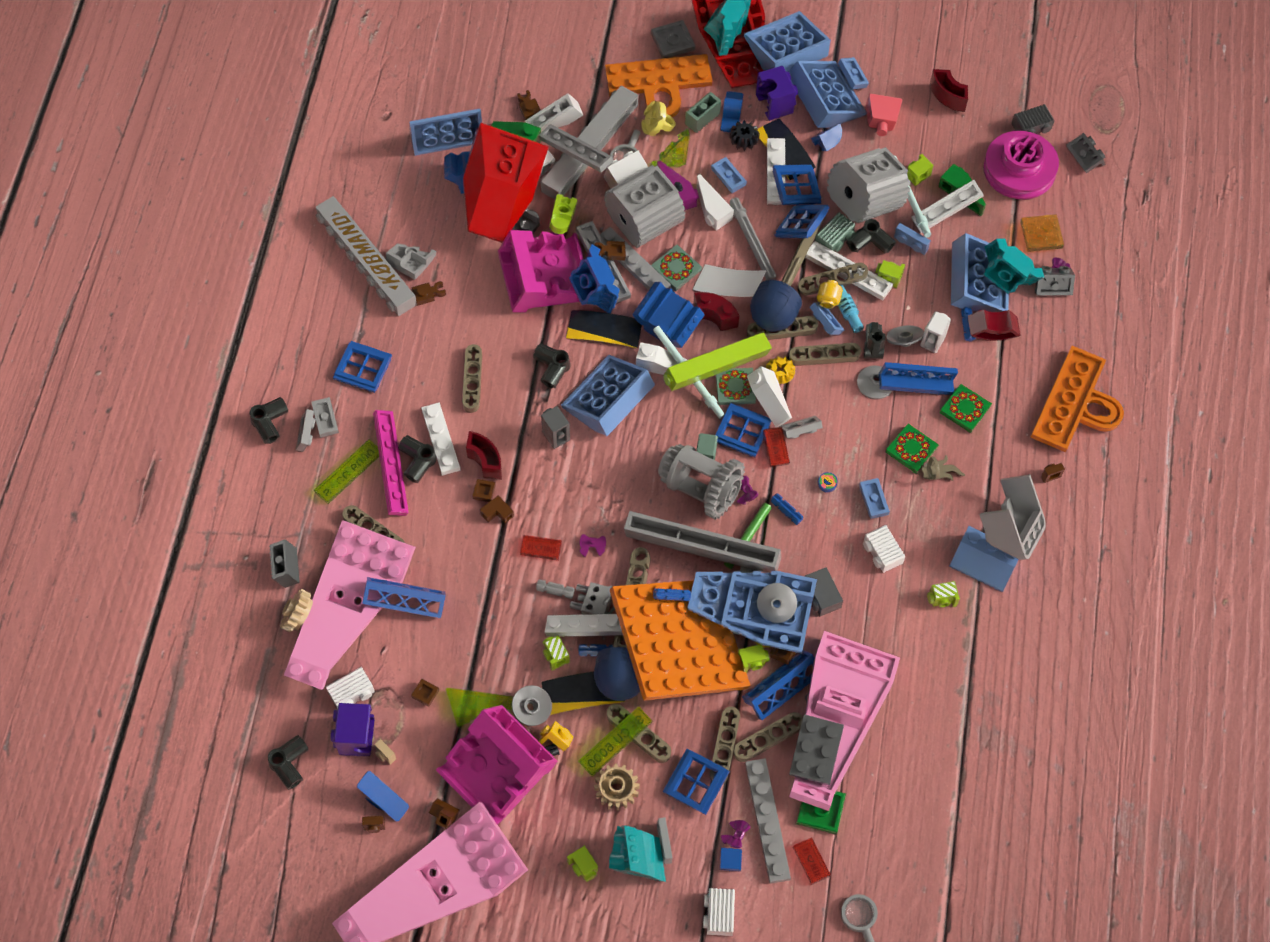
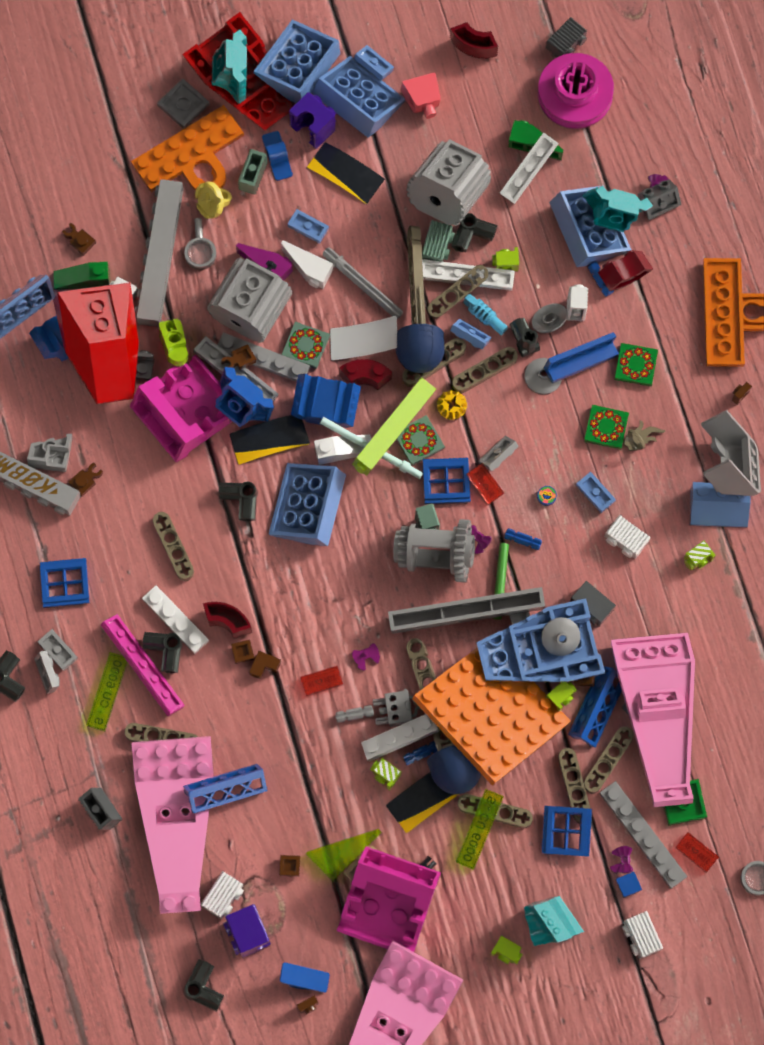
camera: 25 degrees left, 10 degrees up
(296, 611) = (137, 848): tan gear -> none
(384, 752) = (283, 937): tan plate -> none
(445, 813) = (364, 964): reddish brown piece -> none
(541, 705) = (399, 832): light grey dish -> none
(555, 427) = (277, 560): dark grey brick -> none
(557, 114) = (112, 238): white slope -> none
(557, 734) = (427, 848): yellow bracket -> none
(576, 148) = (154, 269): light grey plate -> none
(620, 776) = (495, 878): tan gear -> none
(625, 168) = (213, 271): white brick -> none
(664, 840) = (561, 891): light grey tile -> none
(672, 594) = (467, 675): blue axle -> none
(675, 153) = (248, 232): clear neon green wing -> none
(744, 135) = (310, 177): black gear -> none
(769, 394) = (456, 436): white slope -> none
(775, 156) = (350, 201): white plate -> none
(785, 232) = (401, 261): blue piece -> none
(814, 198) = (368, 194): blue piece -> none
(816, 750) = (657, 754): dark grey plate -> none
(828, 138) = (382, 143): brick -> none
(829, 294) = (463, 310): yellow head -> none
(912, 239) = (515, 216): medium blue plate -> none
(919, 170) = (484, 139): lime brick -> none
(920, 218) = (512, 194): light aqua bar -> none
(1042, 233) = (626, 153): clear yellow plate -> none
(1085, 152) = (630, 50): dark grey bracket -> none

